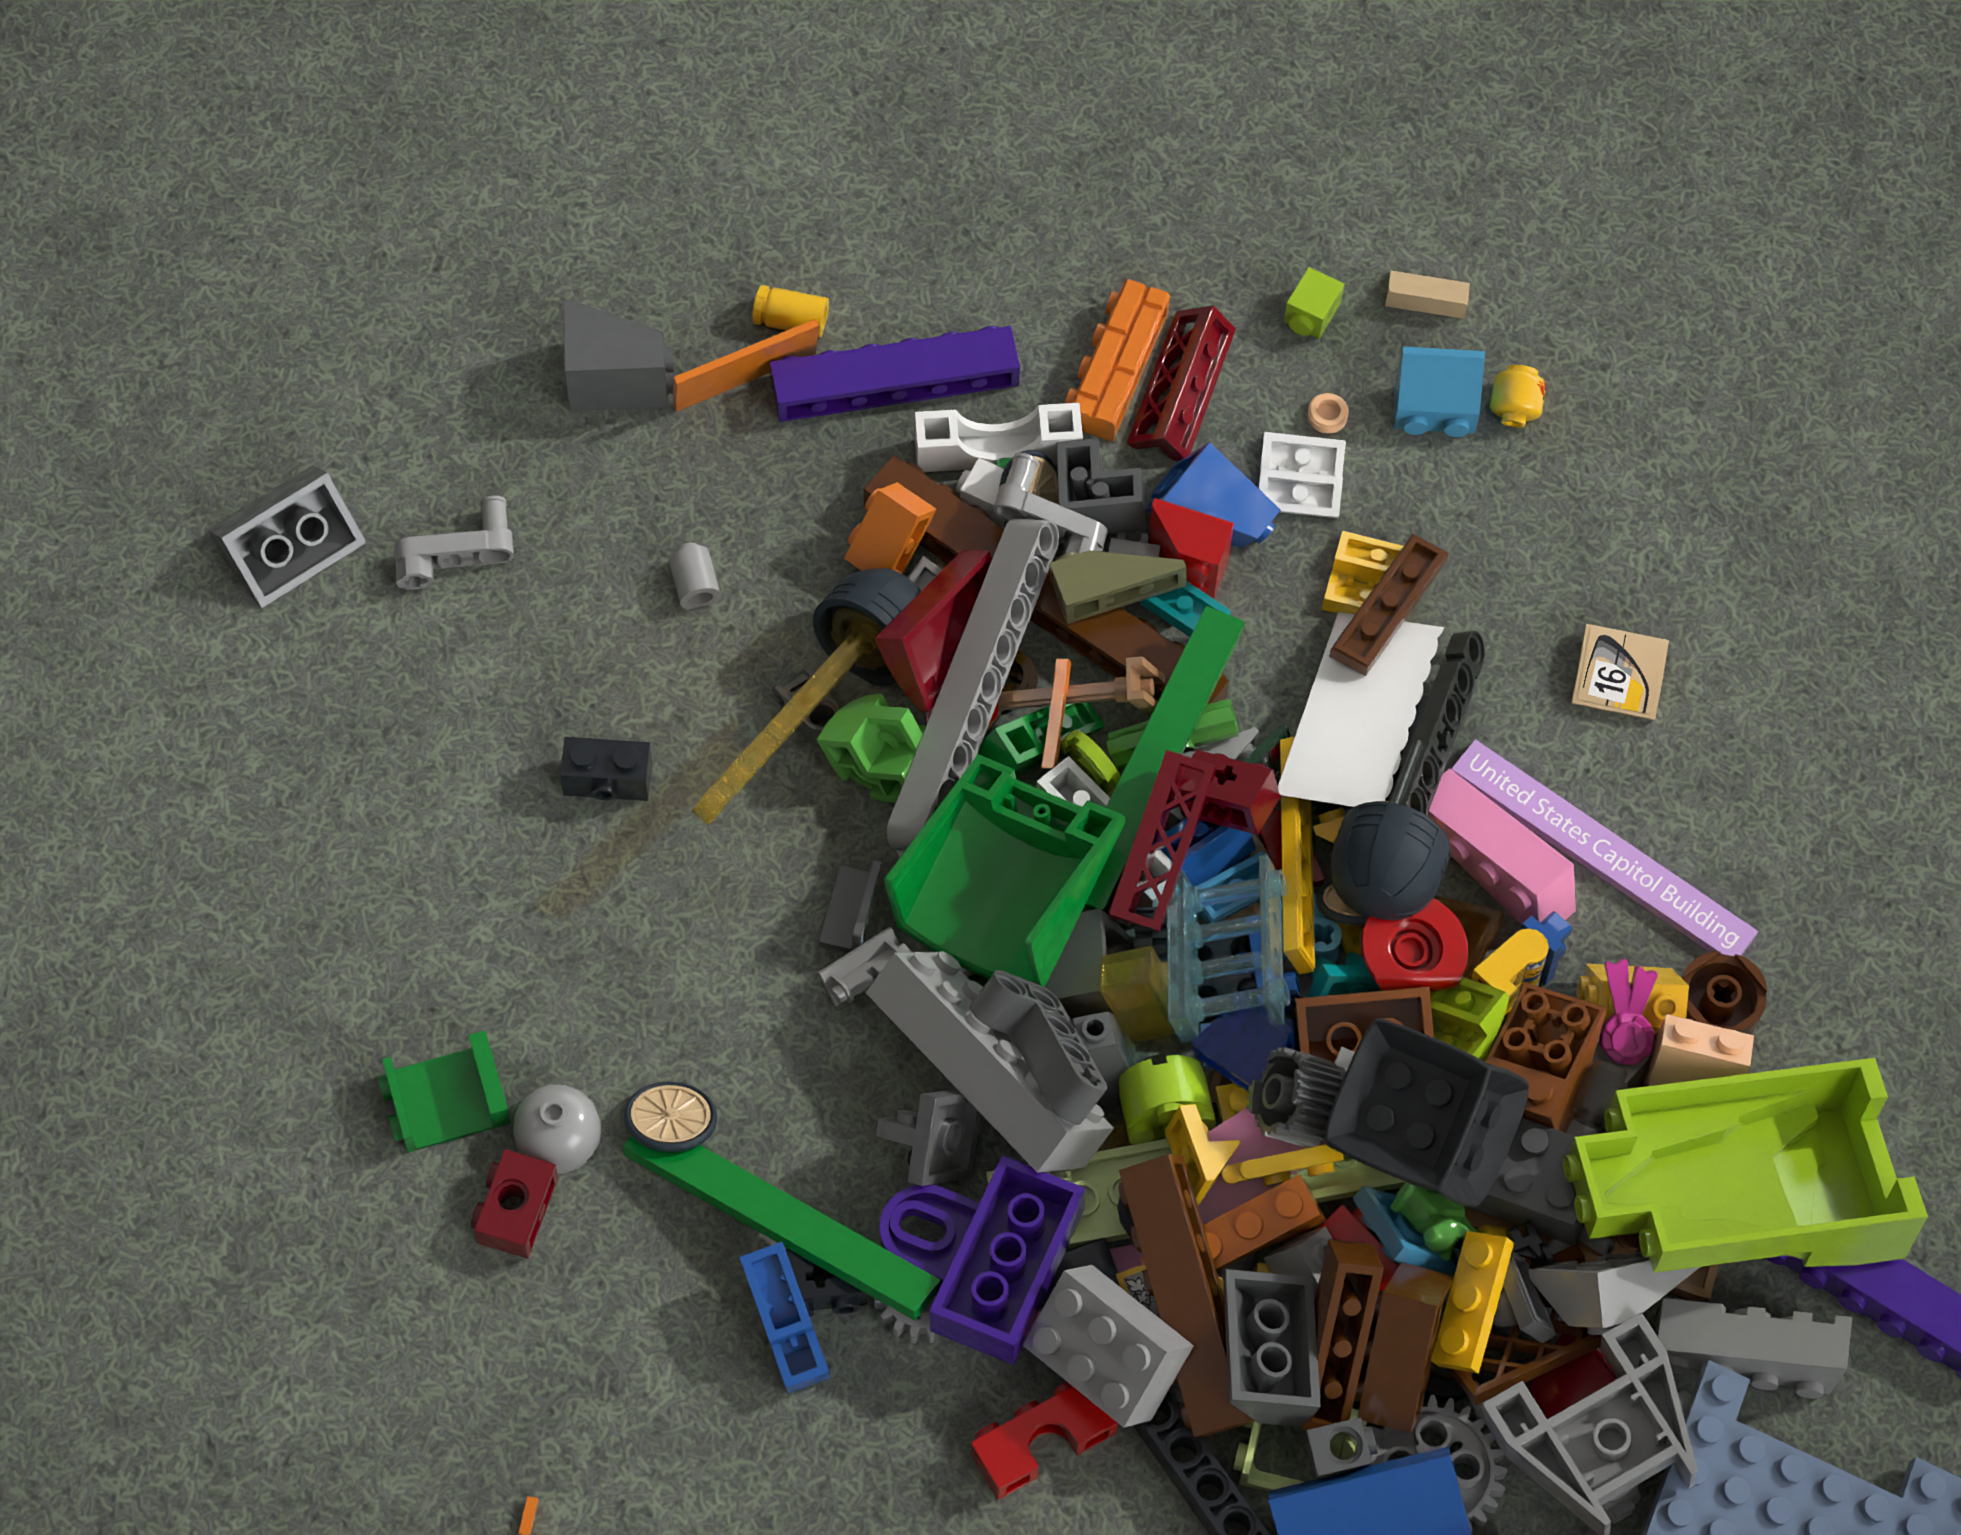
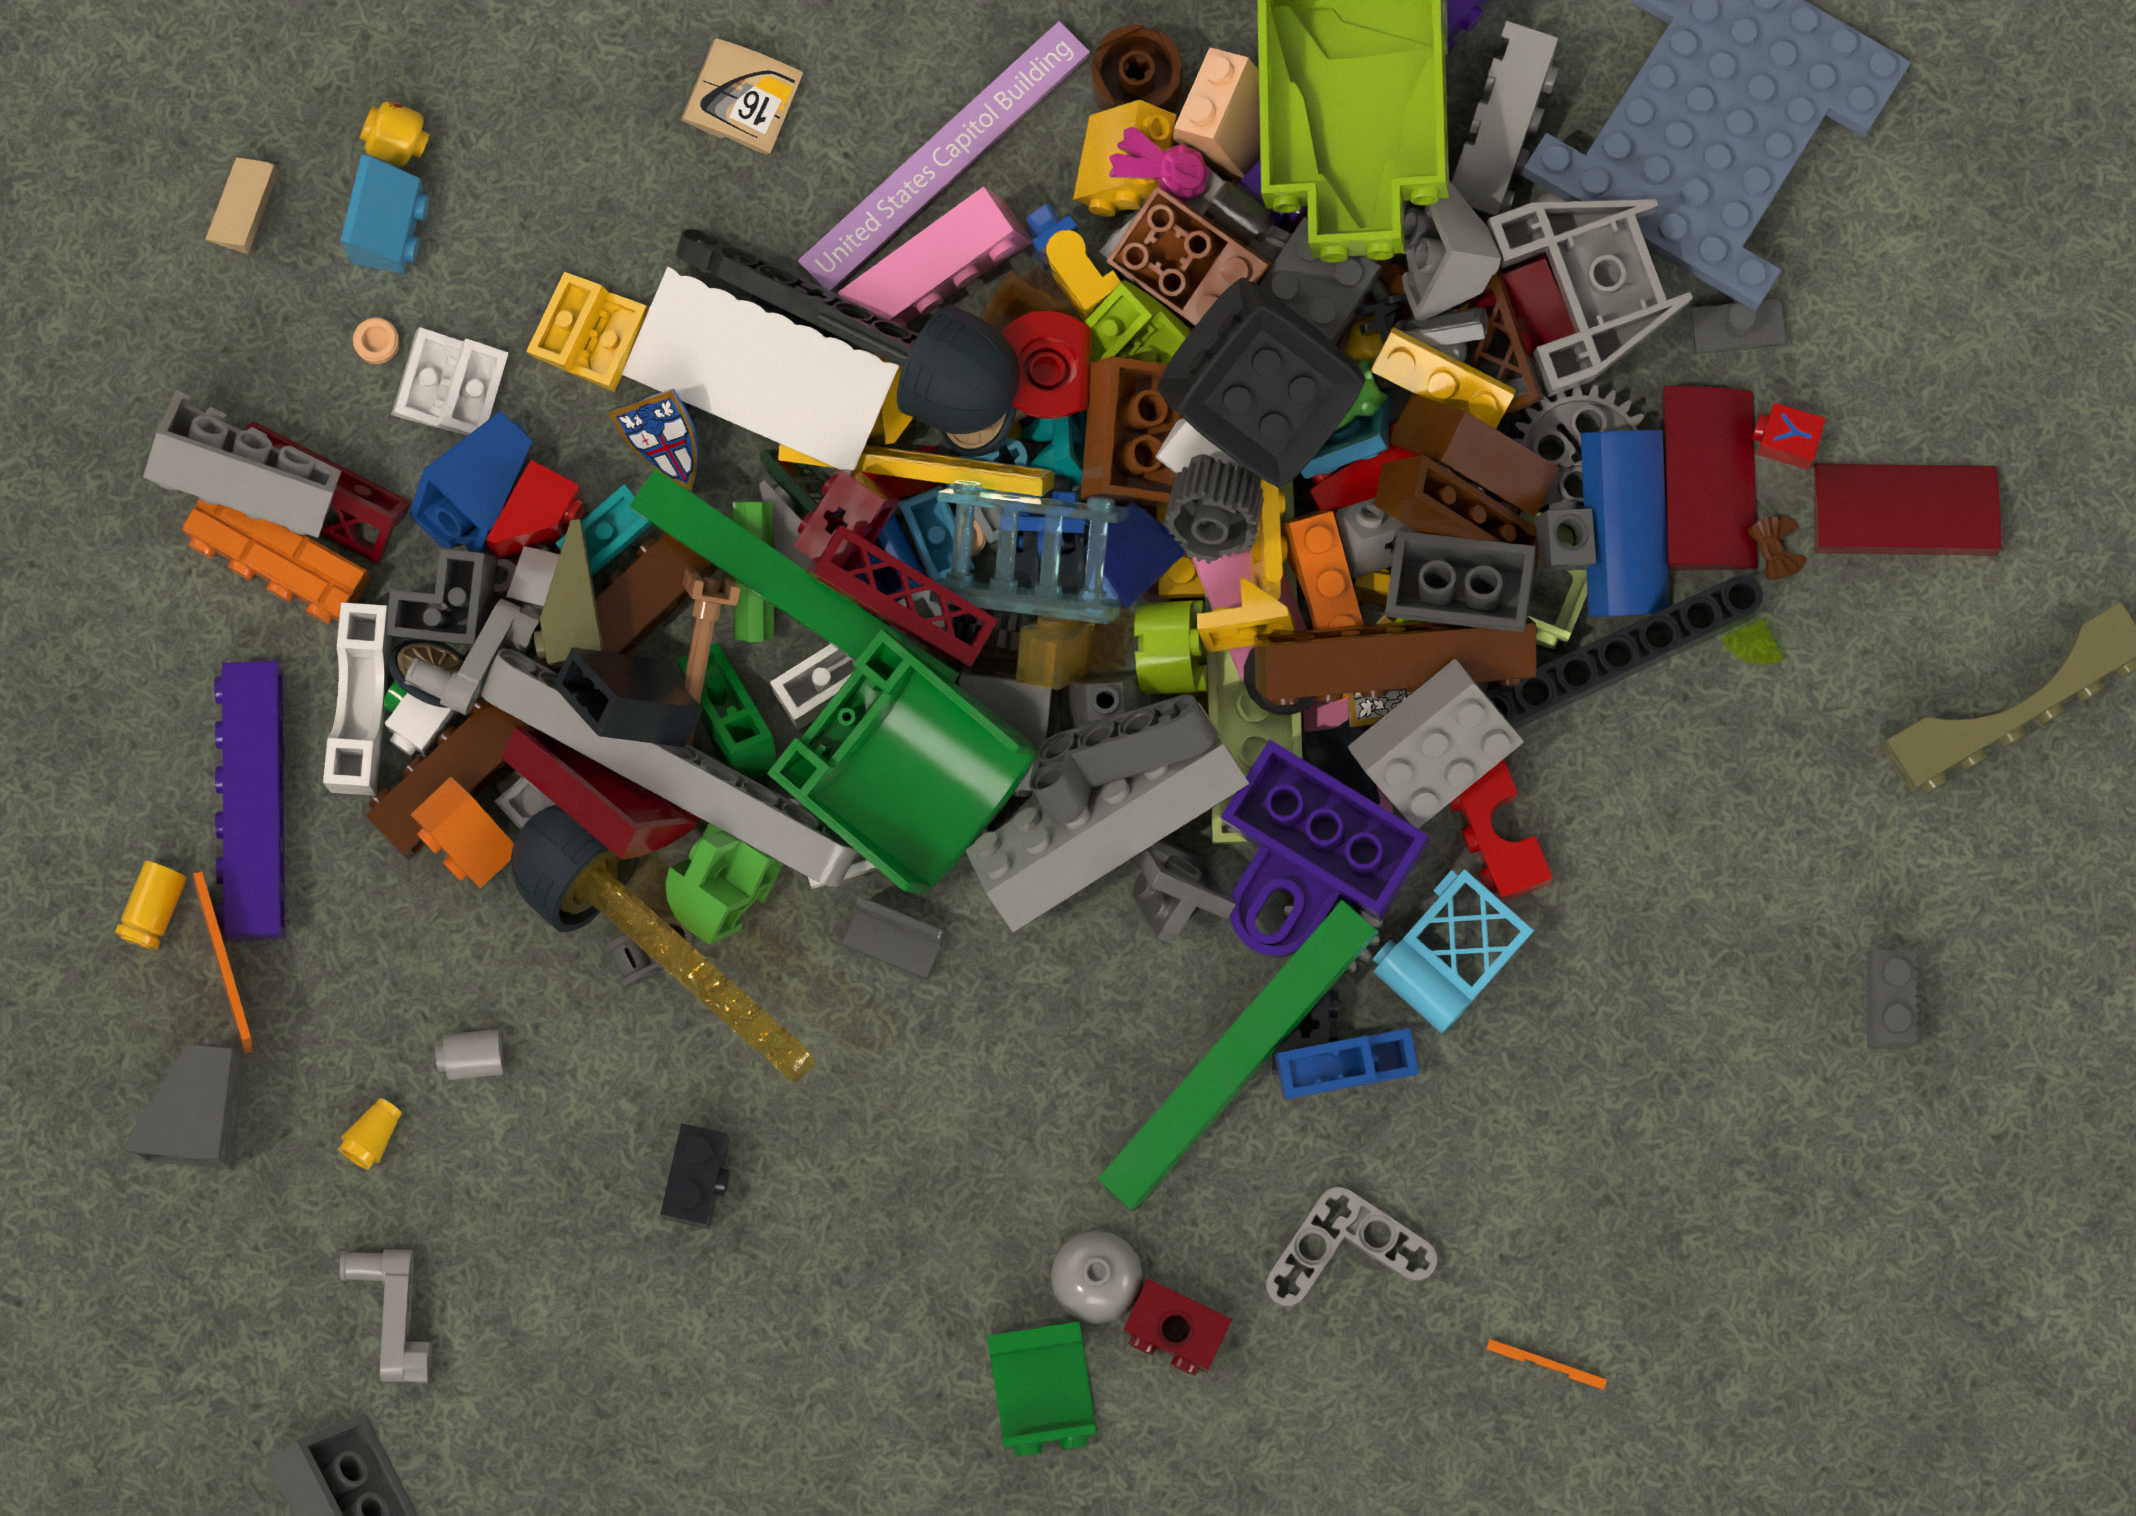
camera: 75 degrees left, 15 degrees up
(612, 508) = (370, 1134): none -> yellow cone
(628, 1355) = (1353, 1231): none -> light grey beam
(670, 1116) = (1103, 1156): tan wheel -> none
(860, 966) = (975, 950): light grey hinge -> none
(883, 1387) = (1428, 981): none -> medium azure piece
(1028, 630) = (628, 697): none -> black brick
(1056, 714) = (720, 686): orange piece -> none
(1091, 760) = (779, 660): lime tile -> none
(1183, 304) = (239, 469): none -> light grey wedge
(1287, 647) = (661, 435): none -> shield
(1313, 303) = (241, 330): lime brick -> none
(1388, 605) = (634, 317): reddish brown tile -> none

